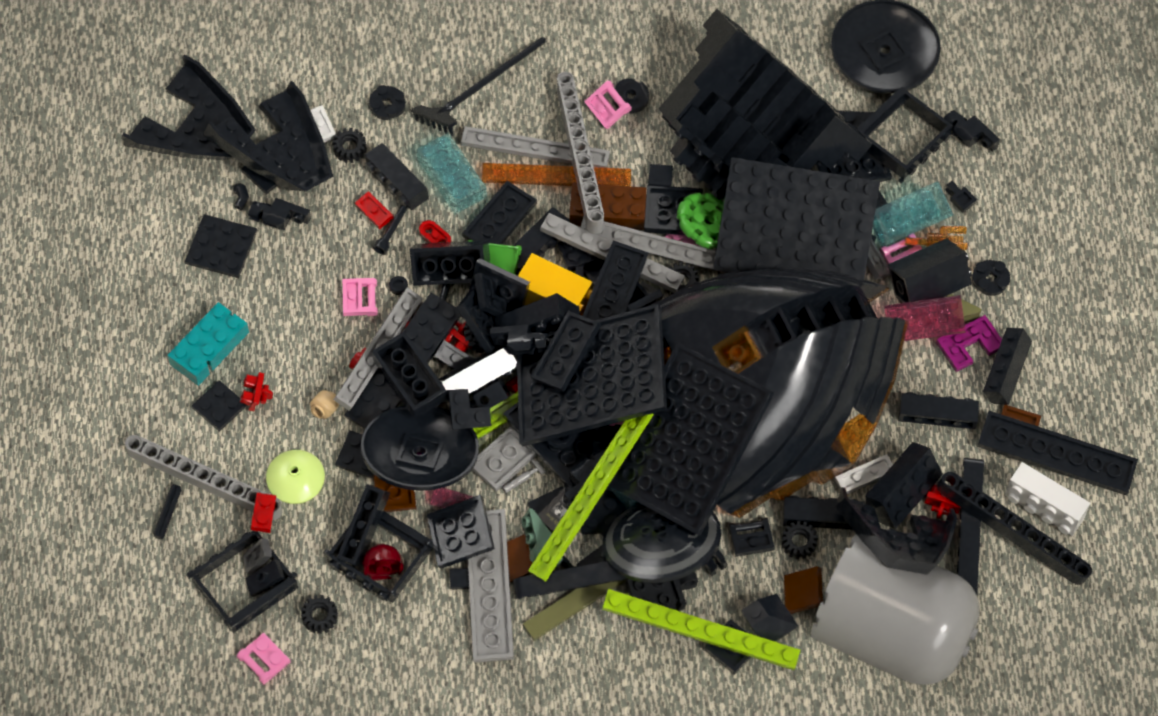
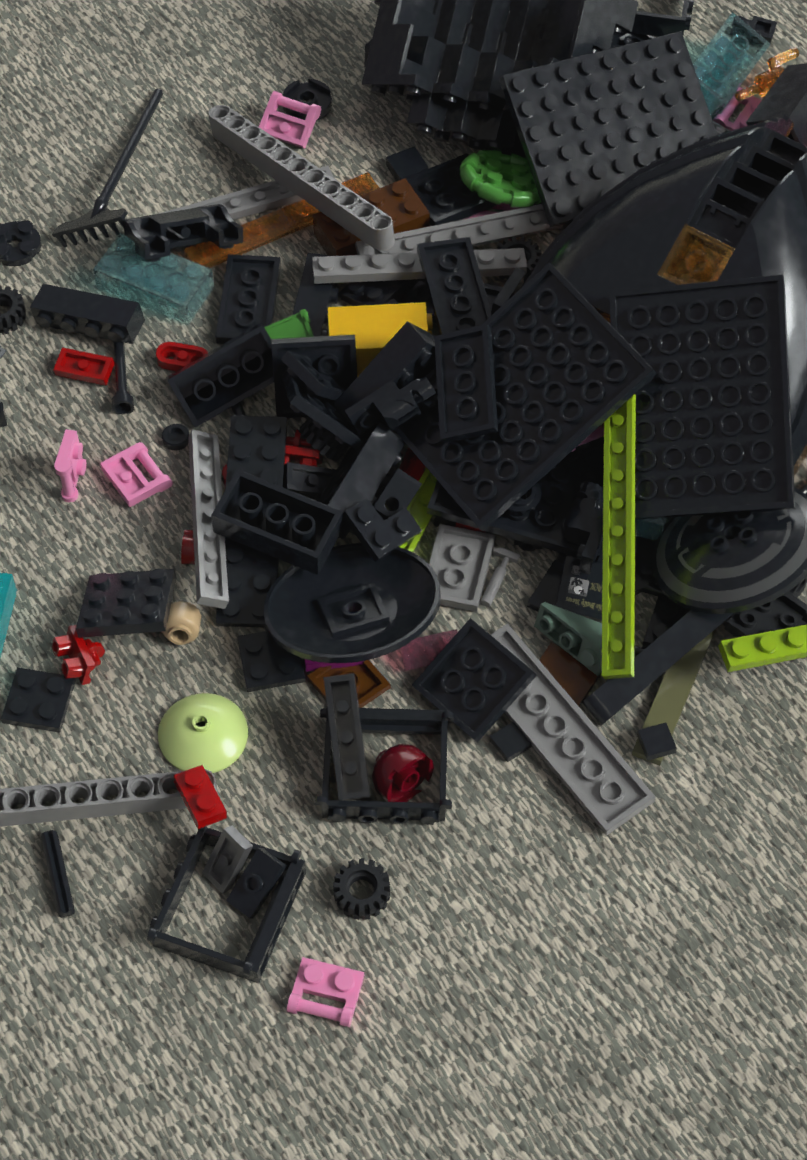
camera: 30 degrees left, 5 degrees down
(300, 376) = (126, 603): none -> black plate
(322, 271) = (70, 465): none -> bright pink plate
(484, 149) = (162, 232): none -> black bracket
(538, 626) = (656, 741): none -> black tile

